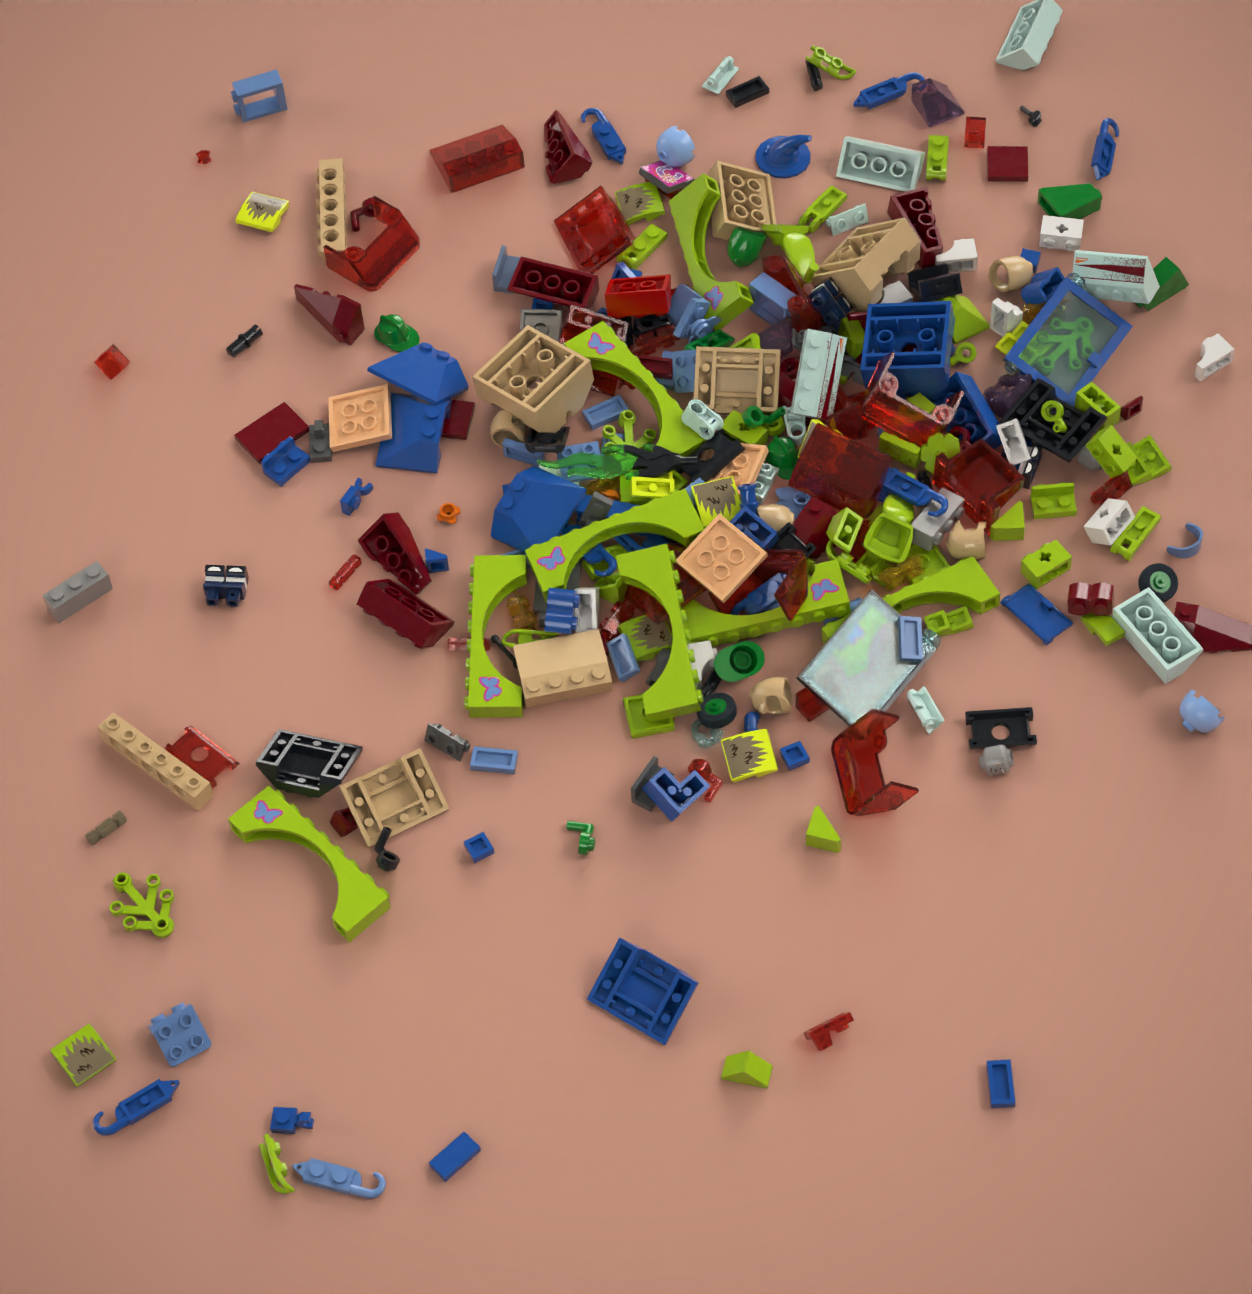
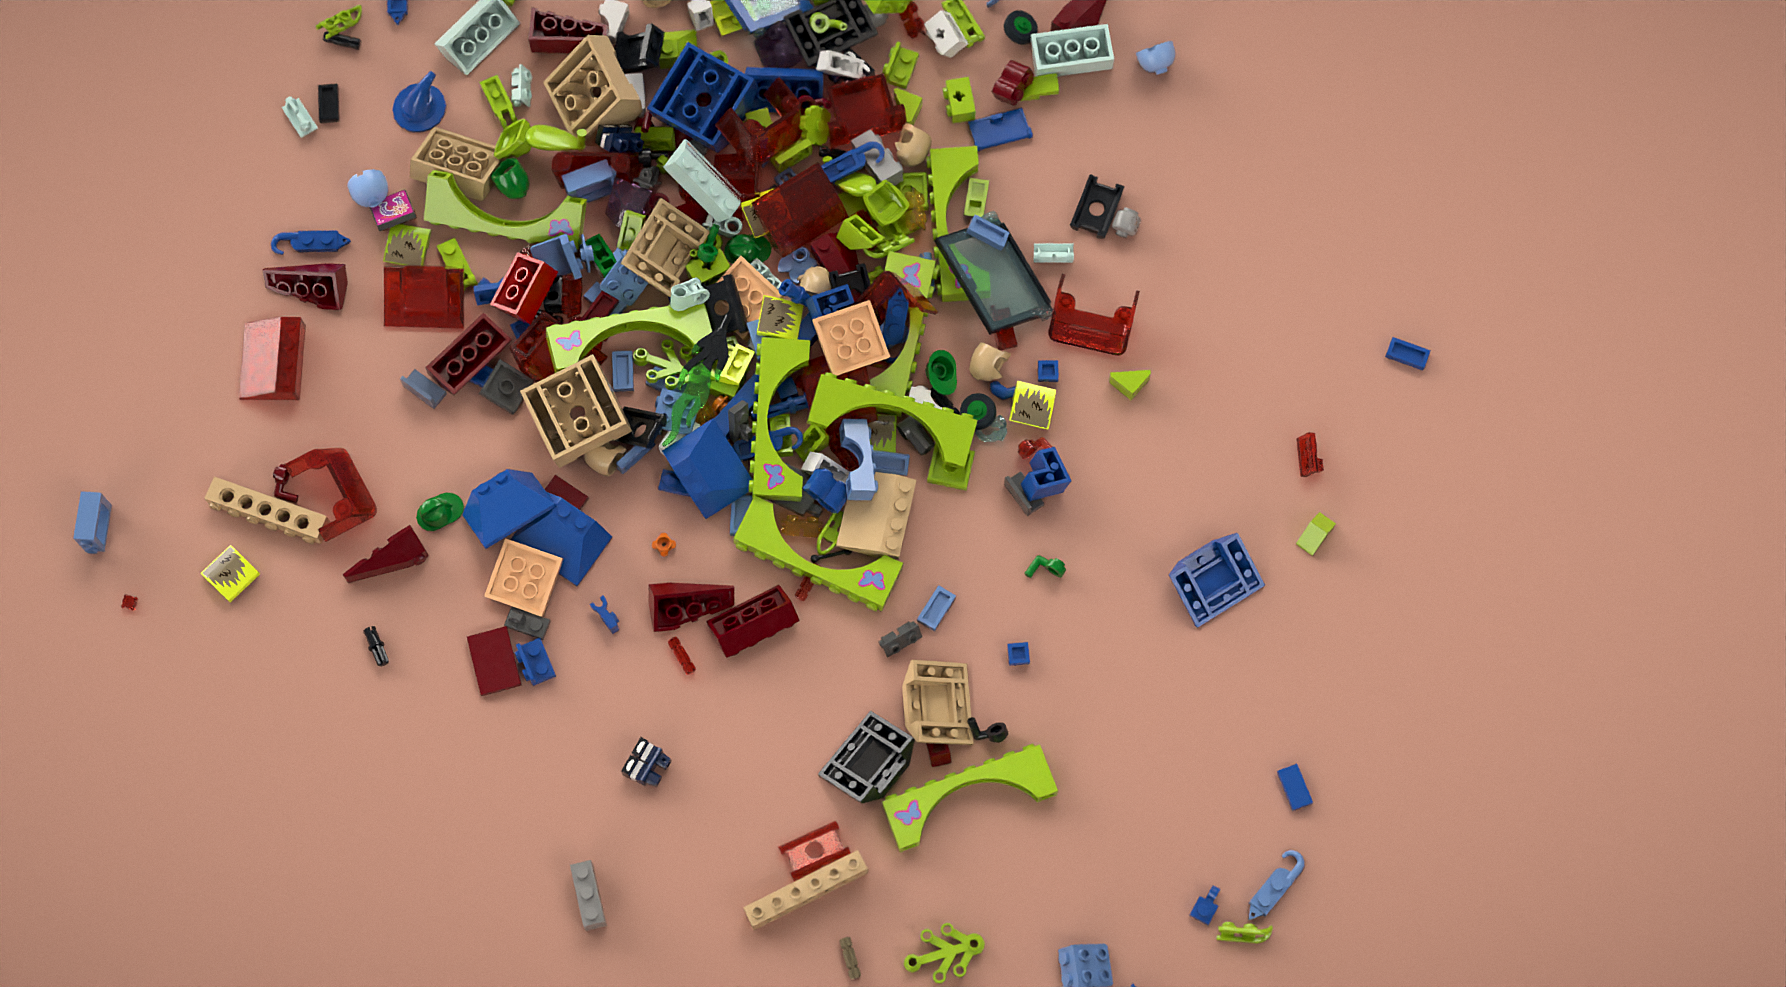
camera: 70 degrees left, 15 degrees up
(111, 361) = (336, 774): clear red panel -> none
(436, 561) = (711, 575): blue slope -> none
(581, 630) = (856, 437): none -> medium blue arch

